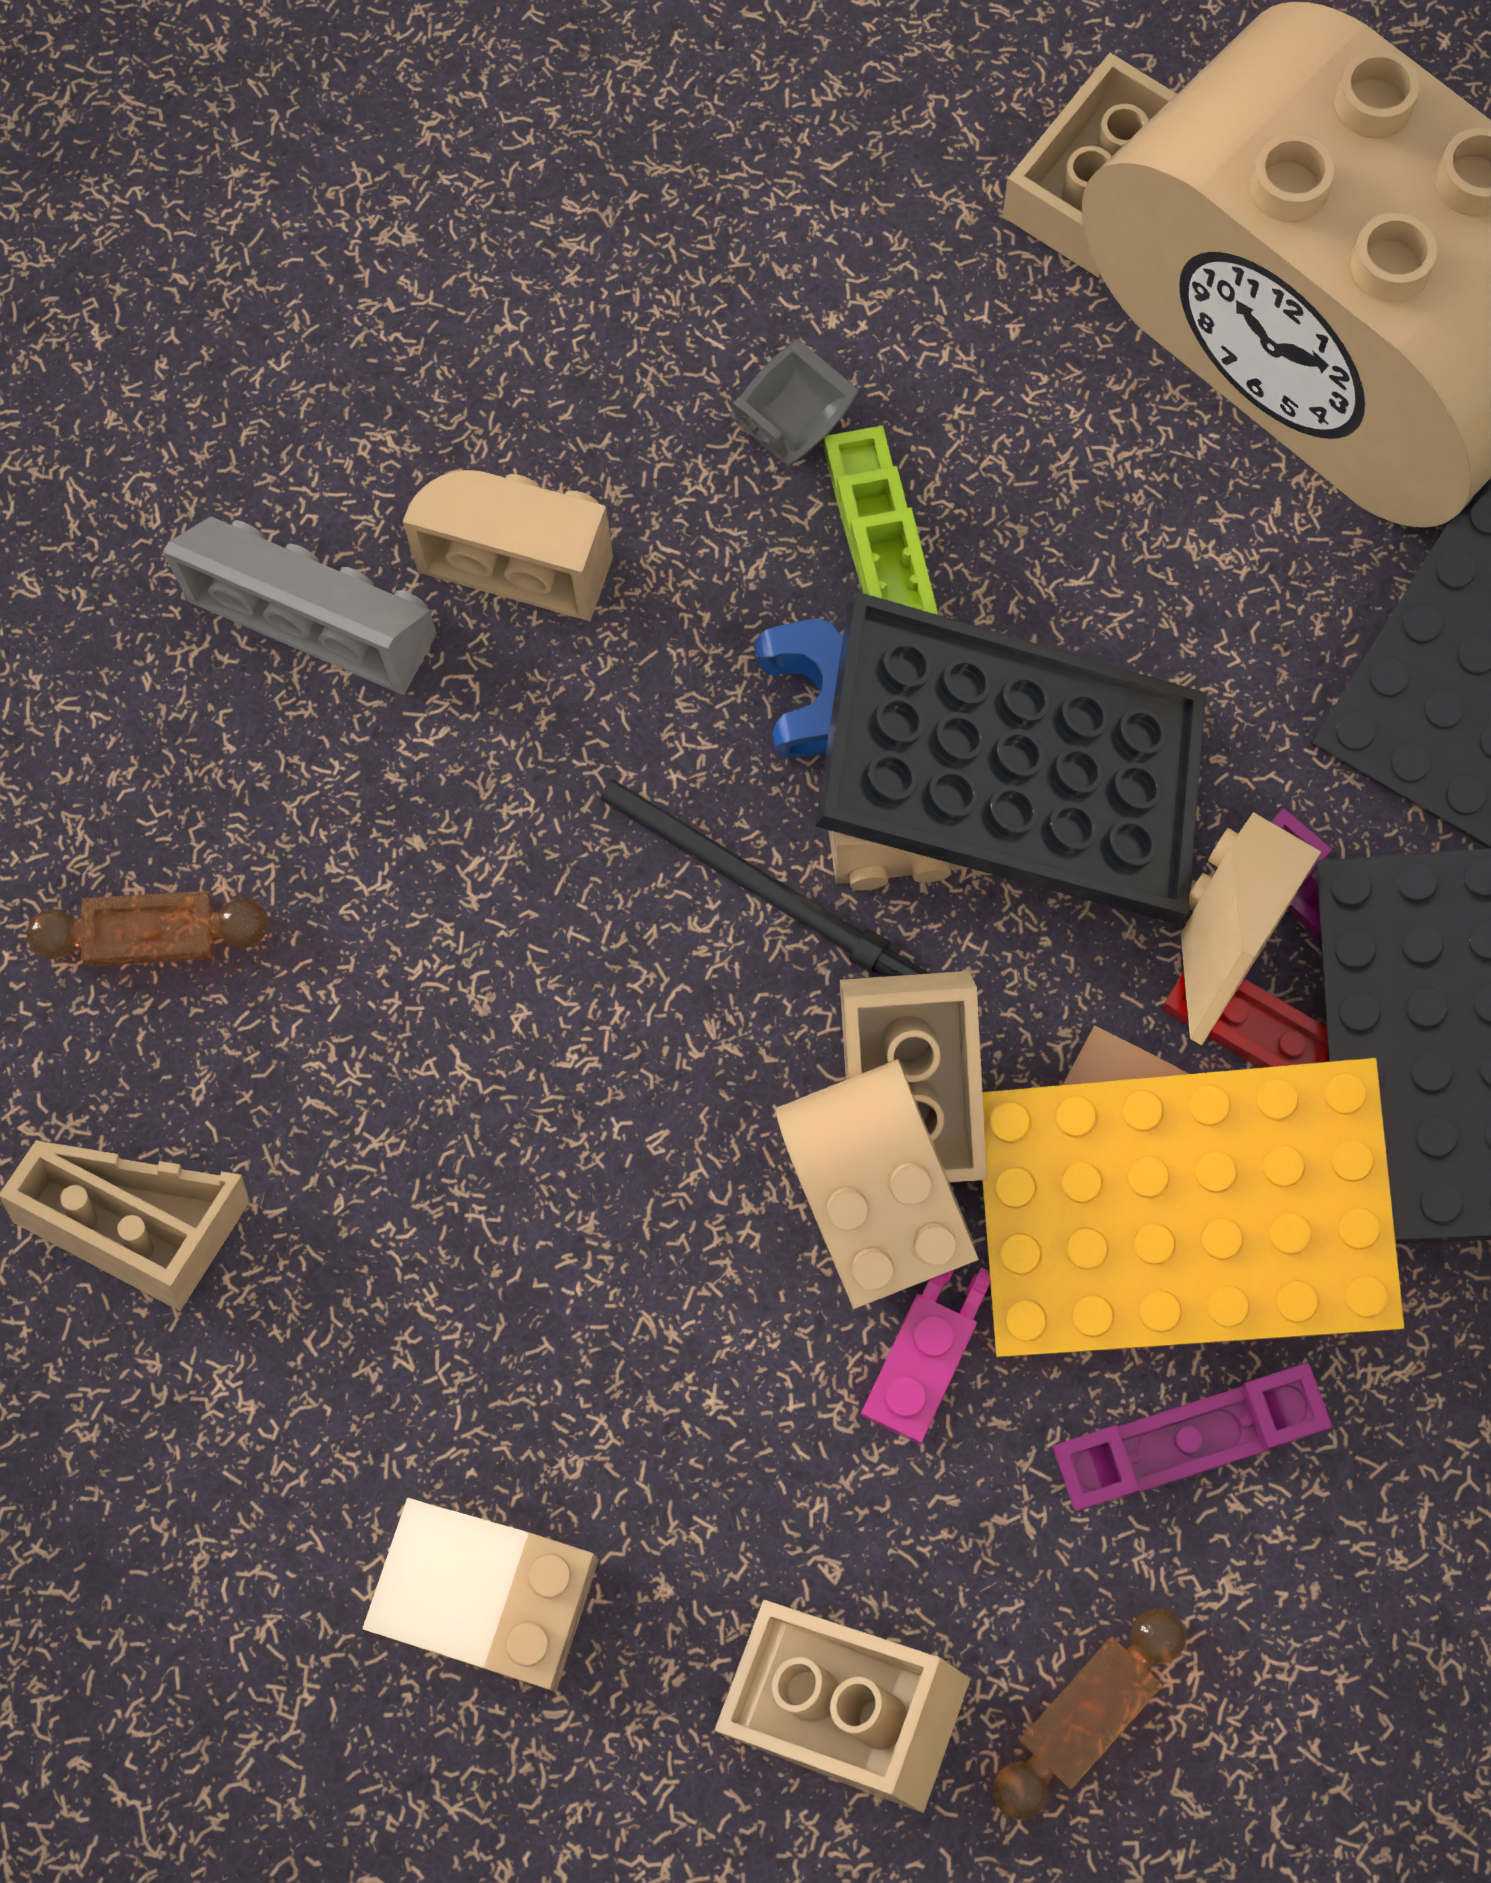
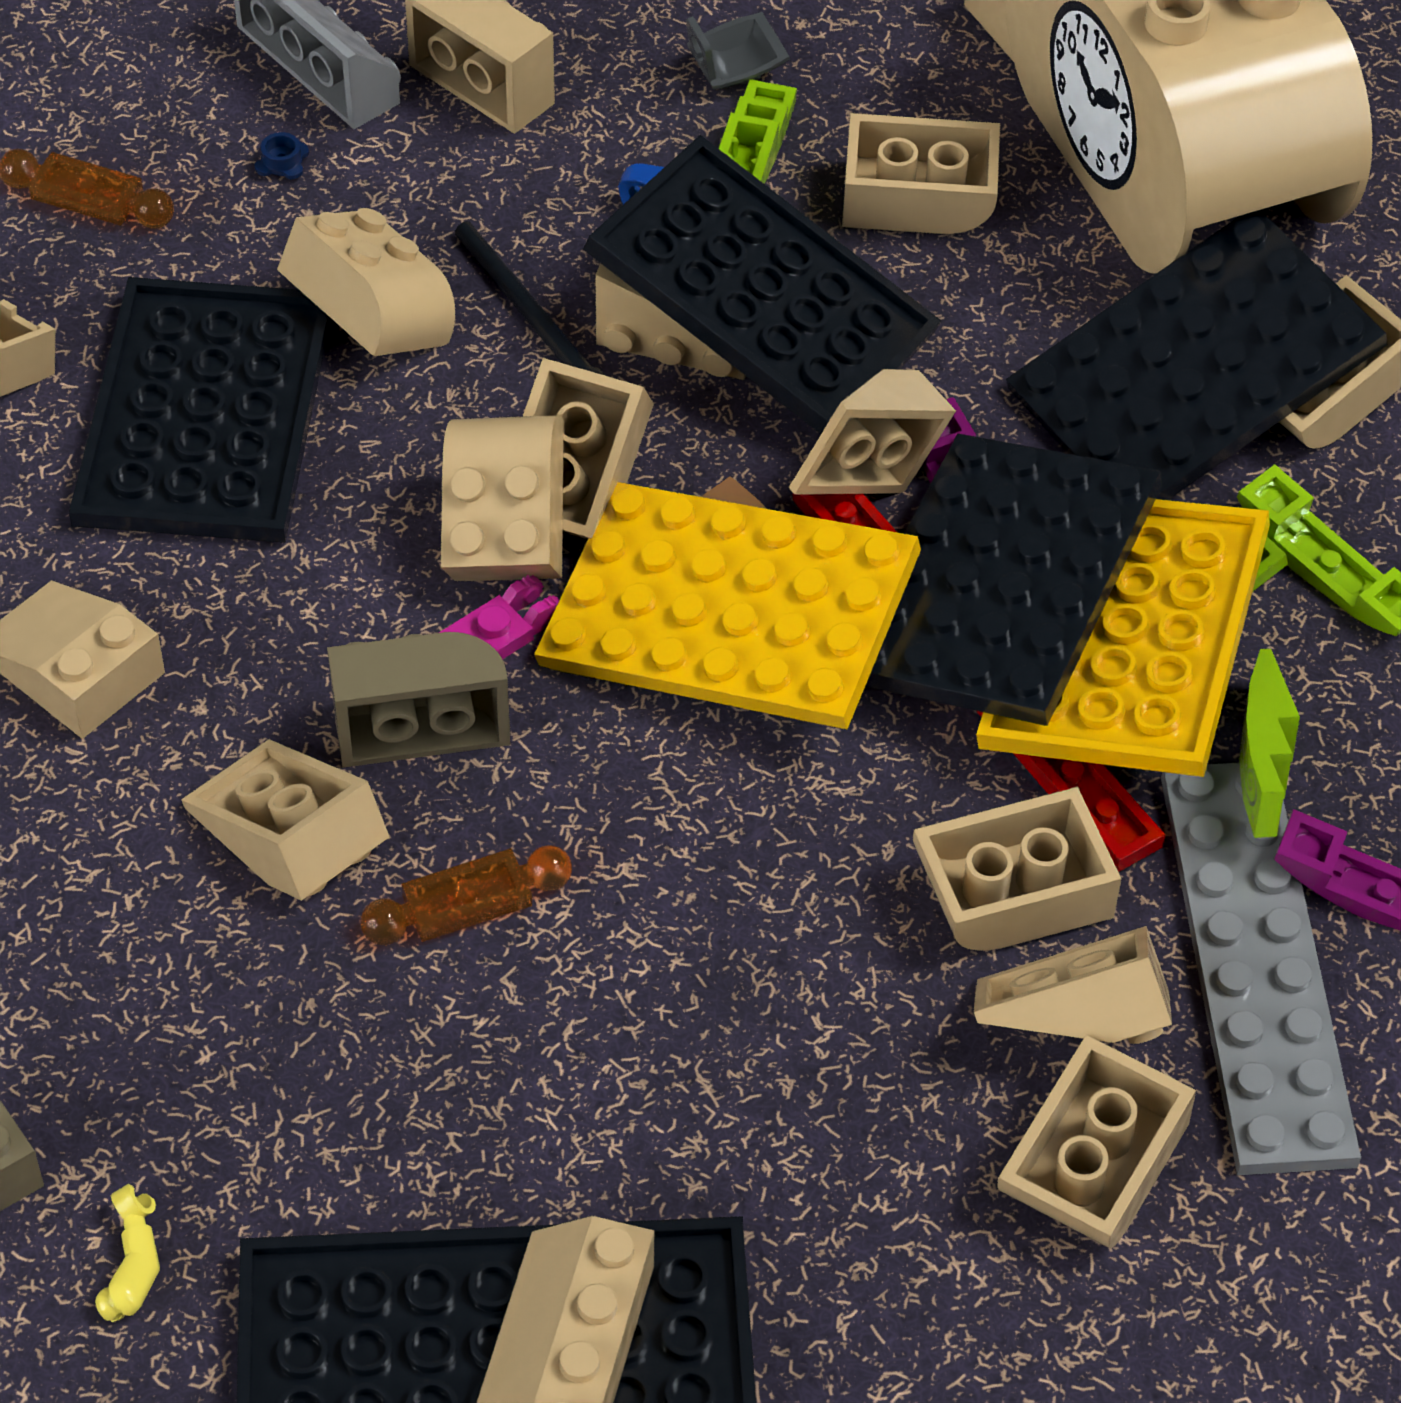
camera: 20 degrees right, 20 degrees down
(344, 762) = (281, 156): none -> dark blue plate
(454, 1185) = (202, 411): none -> black plate
(561, 937) = (370, 281): none -> tan brick
(916, 1497) = (418, 697): none -> dark tan brick
(1092, 501) = (920, 174): none -> tan brick
(1192, 1438) = (647, 763): magenta slope -> none

